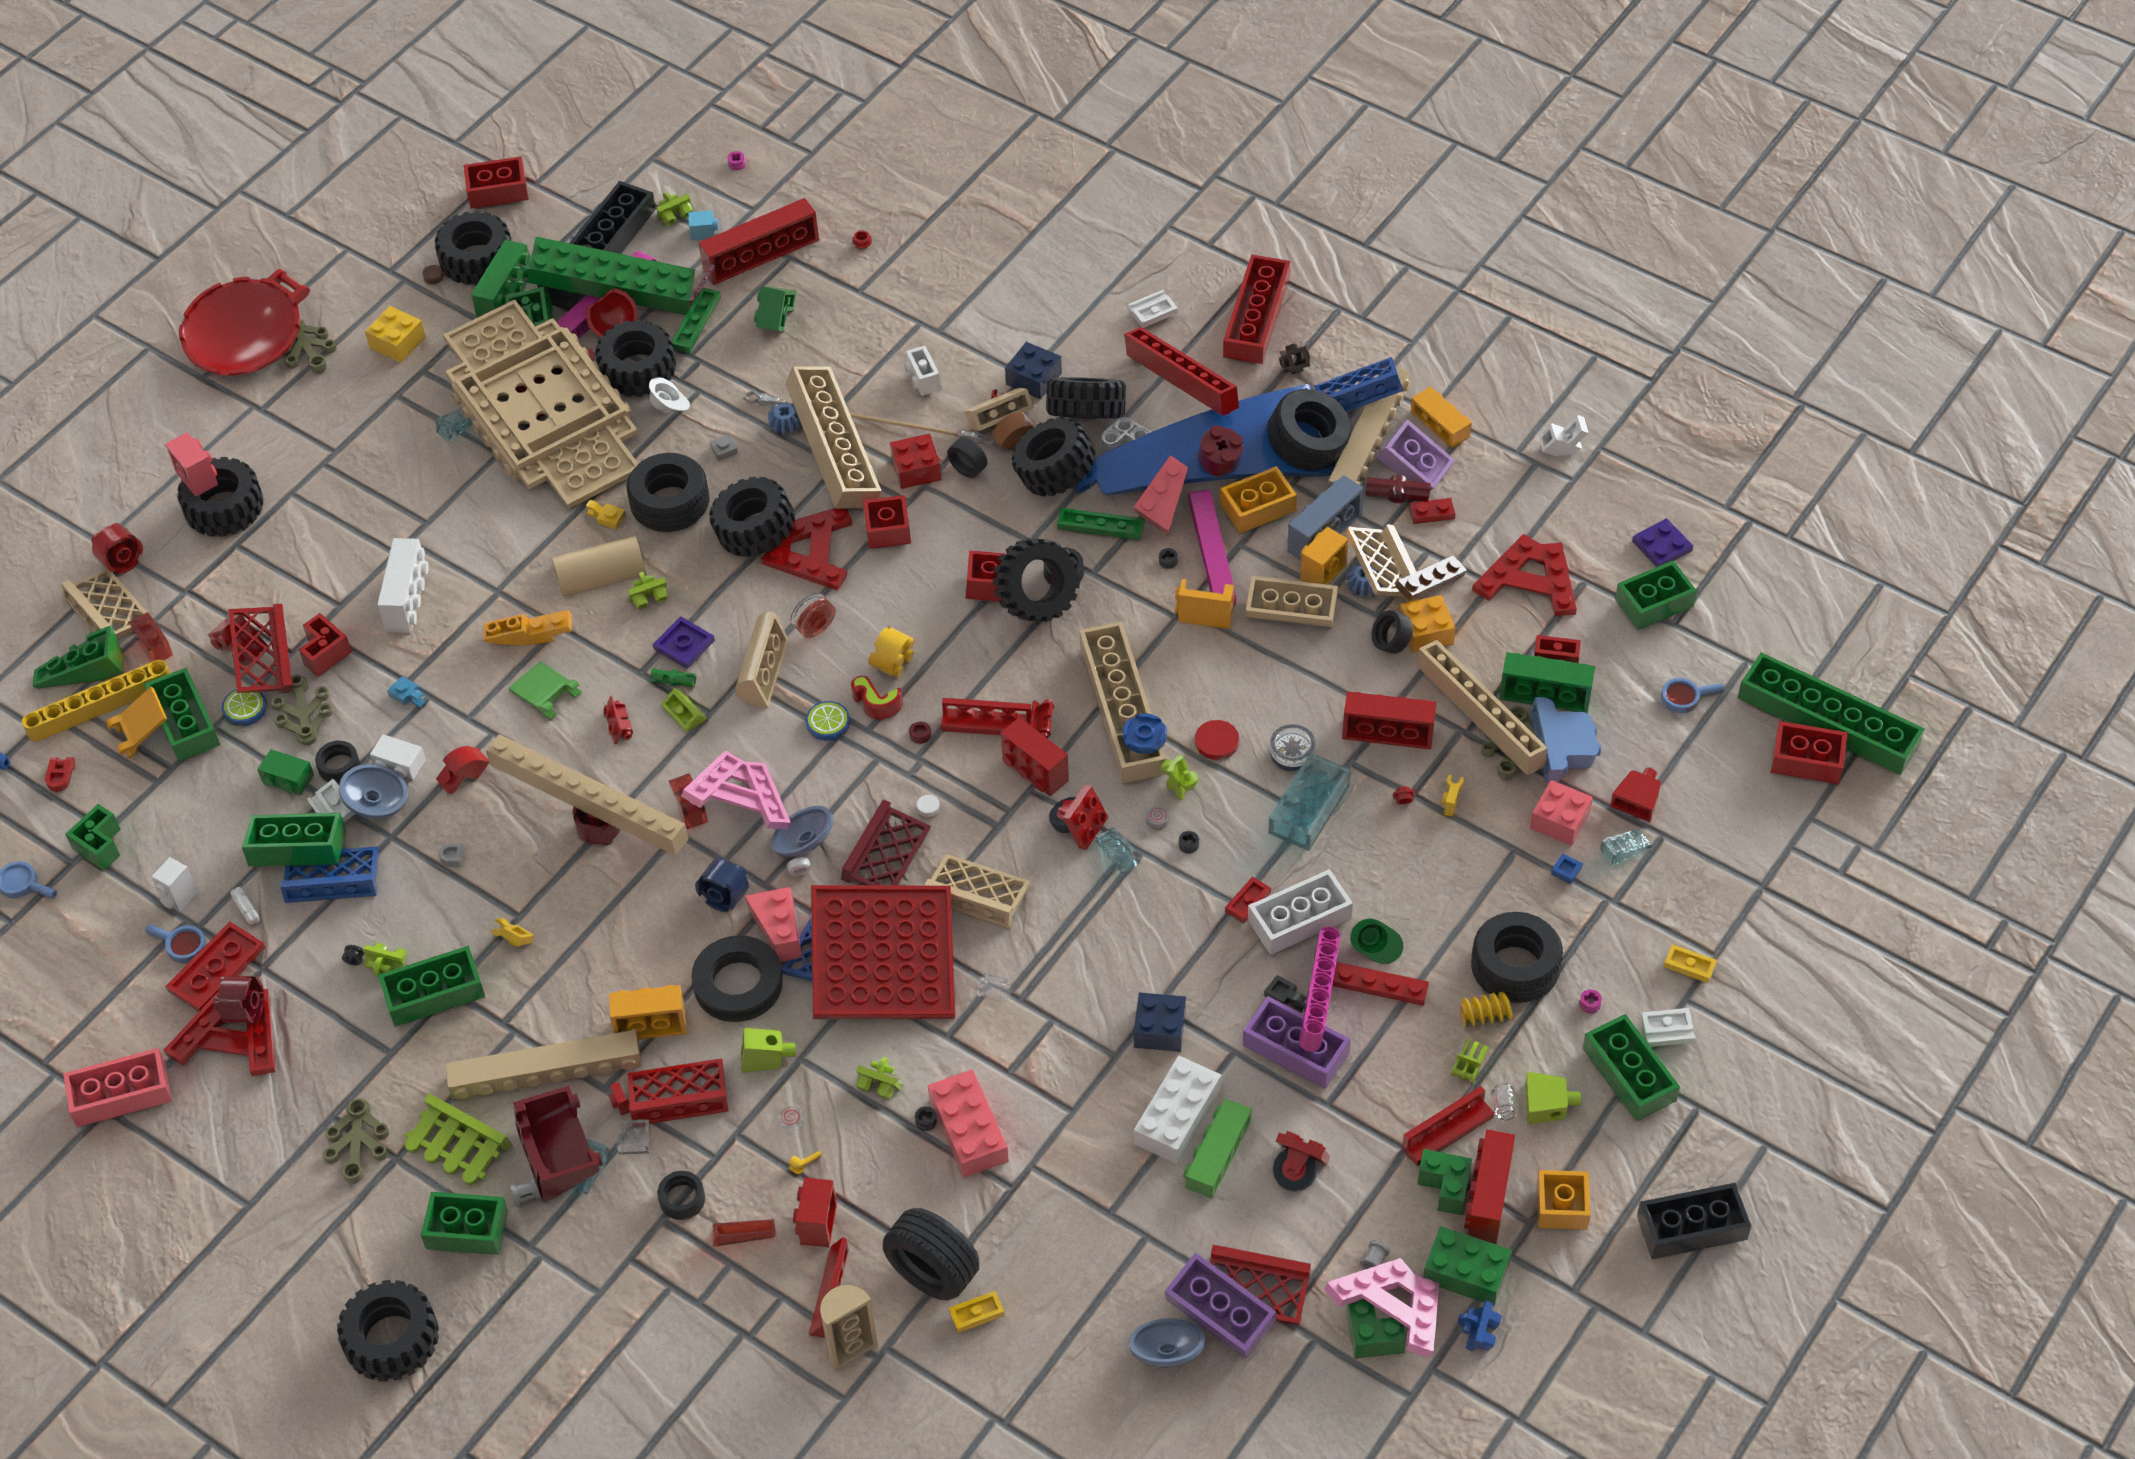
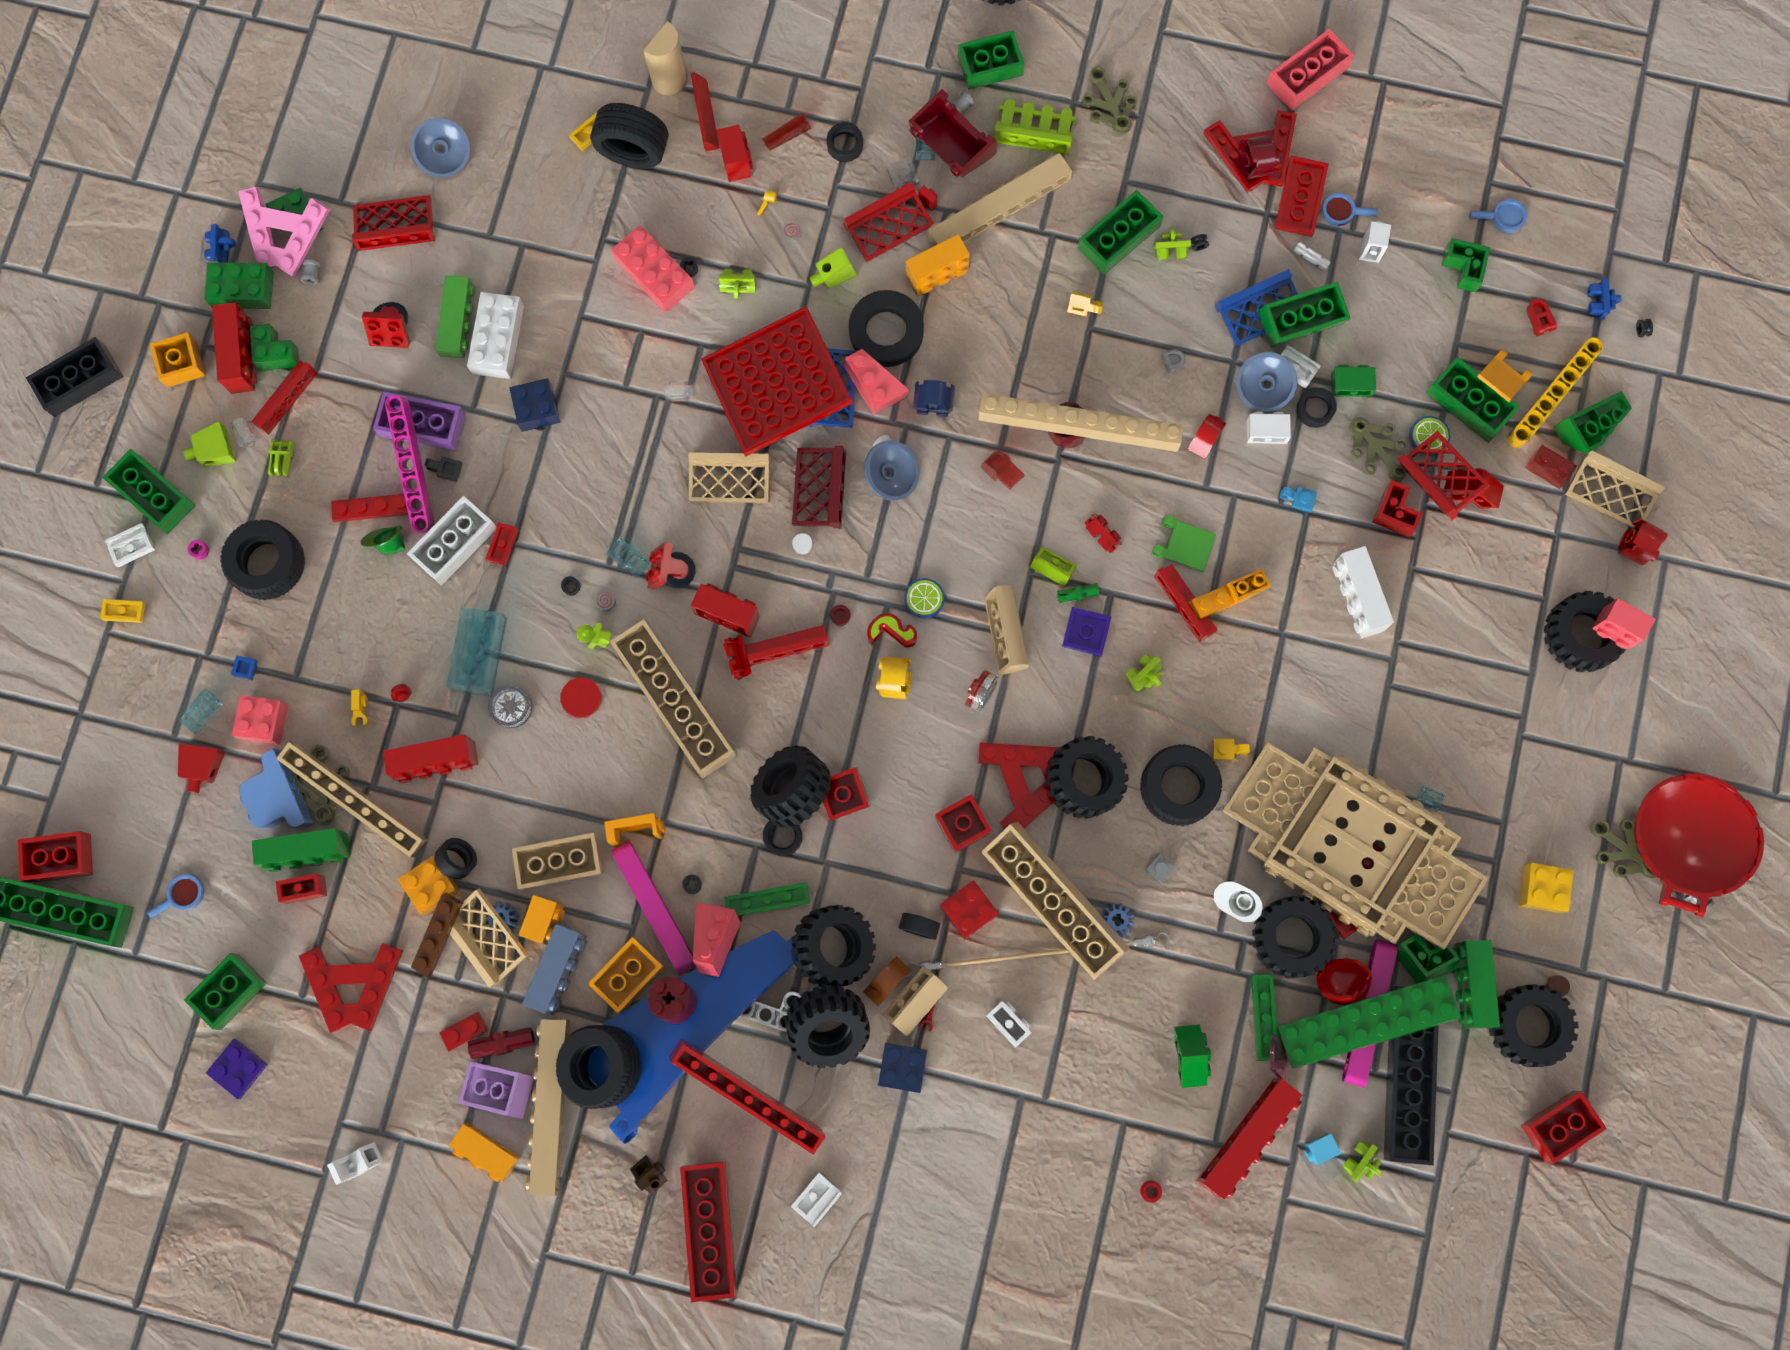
camera: 160 degrees right, 25 degrees up
(574, 642) = (1181, 596): none -> red fence
(598, 566) = (1206, 688): tan brick -> none
(733, 161) = (1341, 1258): dark pink bush -> none
(761, 796) = (936, 488): bright pink plate -> none
(1144, 733) = (635, 657): blue tile -> none
(1220, 1305) = (409, 185): medium lavender brick -> none
(1369, 387) = (562, 1138): blue fence -> none
(1485, 1008) = (279, 506): yellow piece -> none

